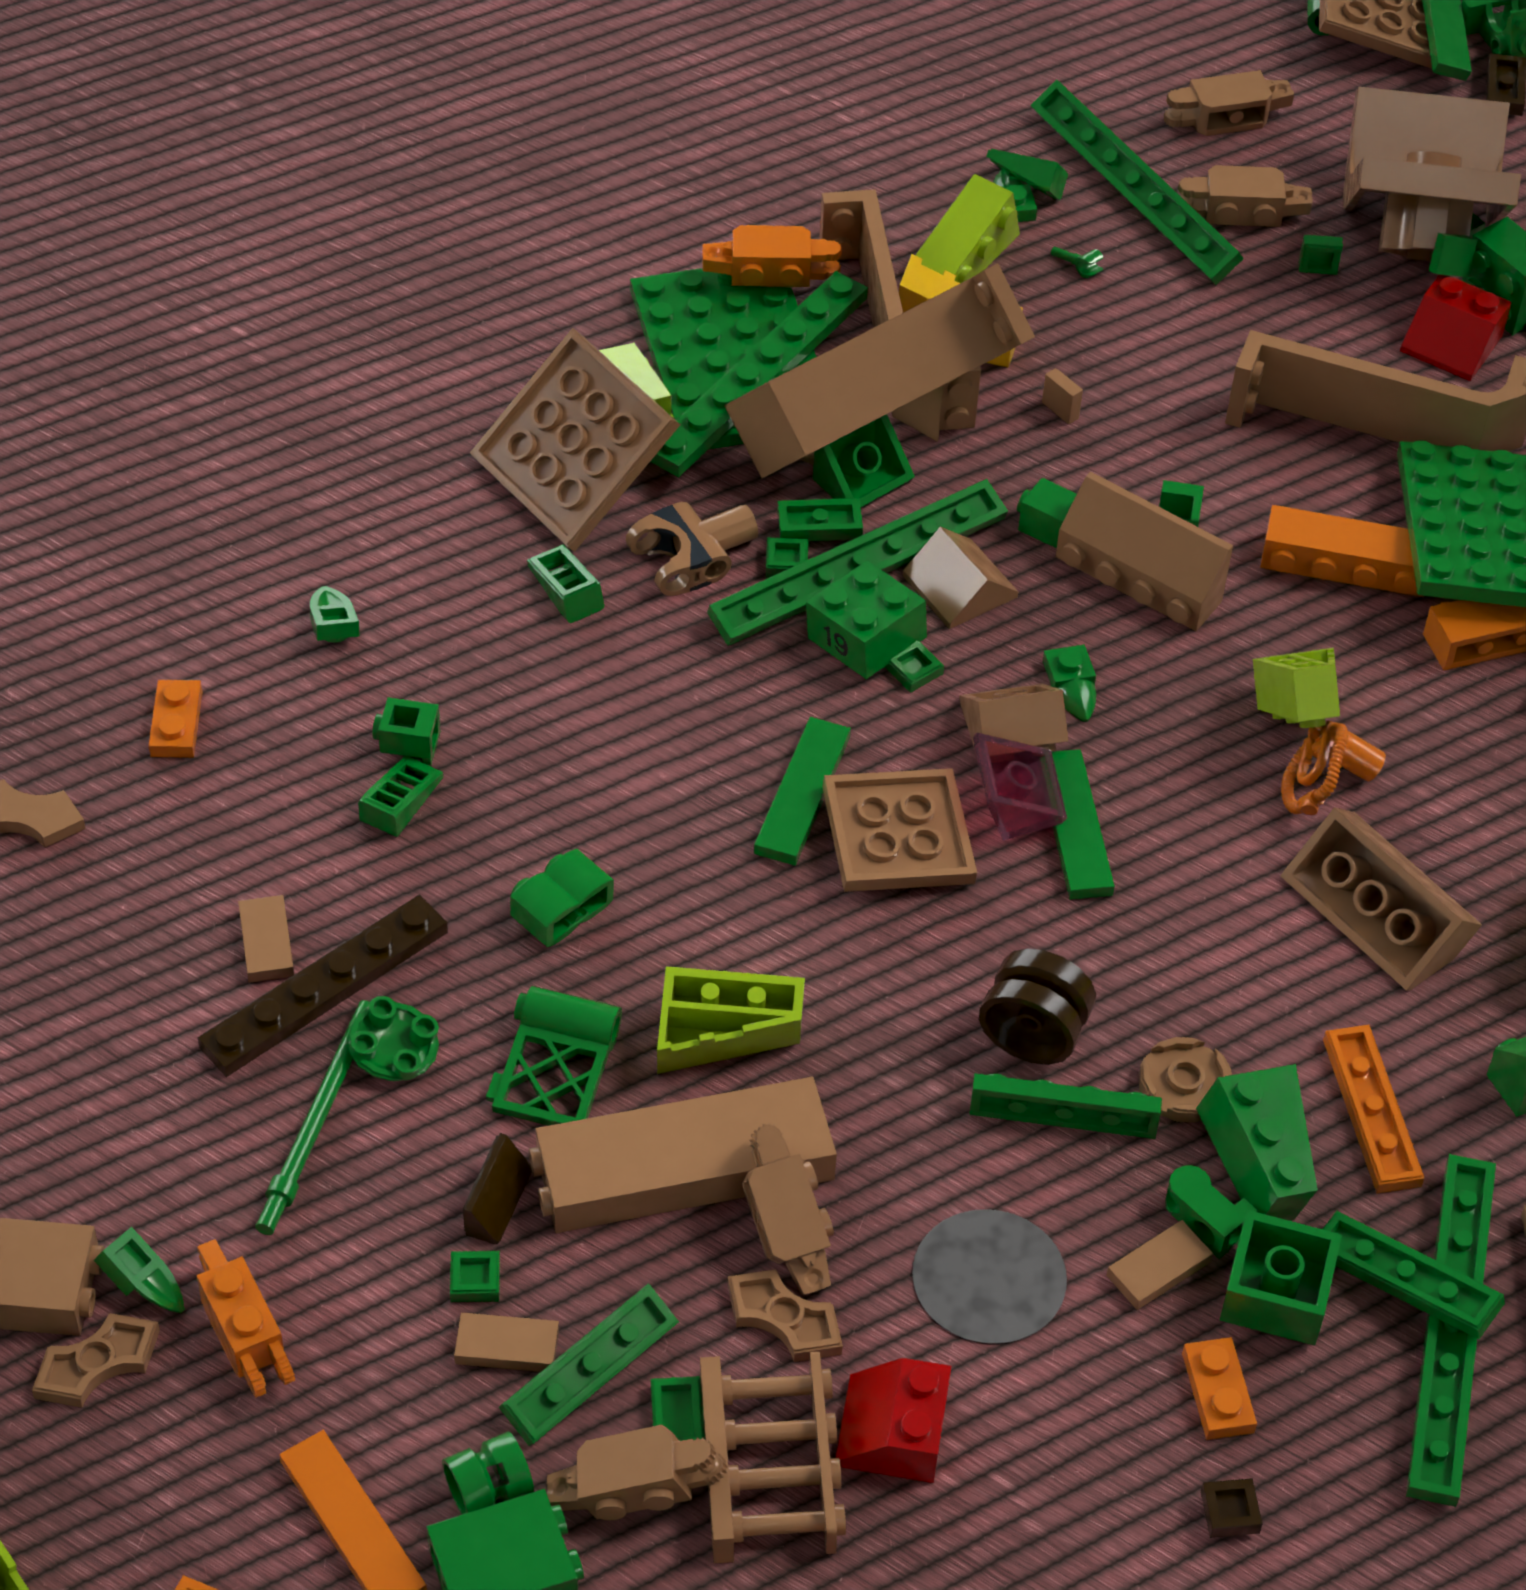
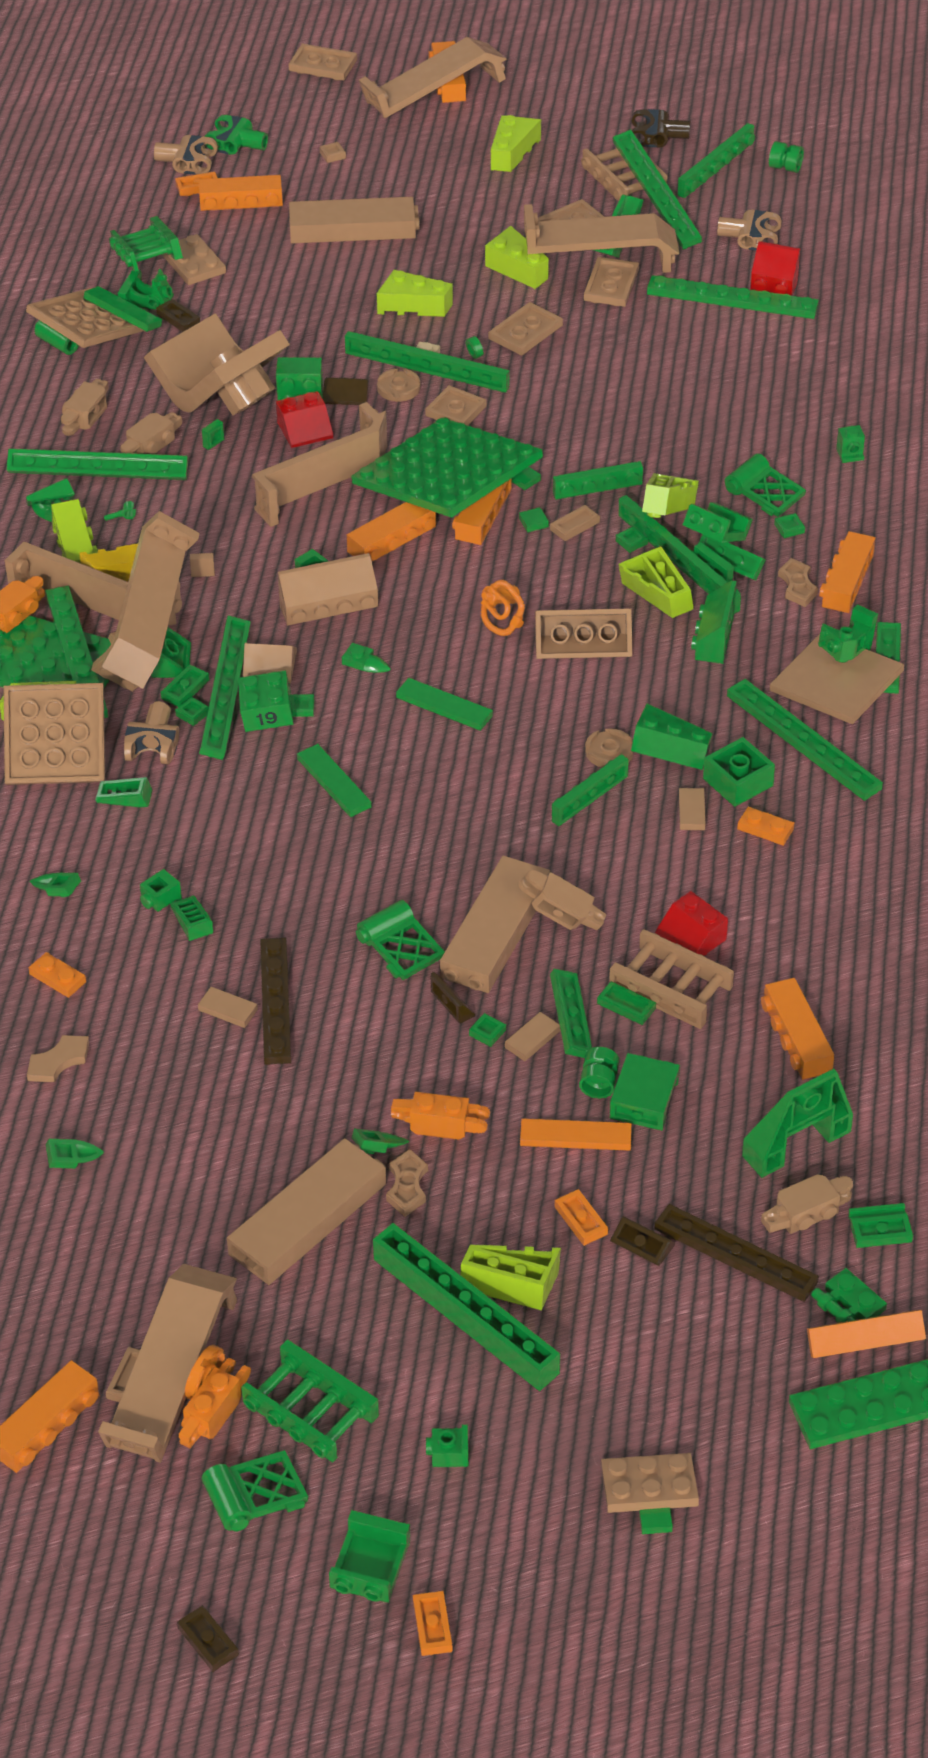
camera: 50 degrees left, 5 degrees down
(284, 1186) = (377, 1069): green bar -> none
(393, 1040) = (334, 989): green dish -> none
(561, 897) = (313, 890): green brick -> none
(635, 1473) = (646, 1019): medium nougat hinge -> none
(725, 1016) = (437, 868): lime wedge -> none
(767, 1304) = (595, 941): medium nougat tile -> none
(899, 830) = (392, 759): medium nougat plate -> none
(989, 1276) = (645, 865): flat silver sticker -> none
(1018, 714) = (370, 686): medium nougat slope -> none
(1019, 785) = (410, 708): clear pink slope -> none
(1037, 1006) = (538, 764): dark brown wheel -> none
(1044, 510) = (266, 609): green brick -> none
(1205, 1209) = (673, 777): green leg -> none
(1231, 1508) = (824, 852): dark brown plate -> none
(1298, 687) = (459, 583): lime wedge -> none
(1373, 1109) = (679, 701): orange tile -> none
(1414, 1277) = (779, 731): green tile -> none
(1453, 254) = (276, 388): green tile -> none

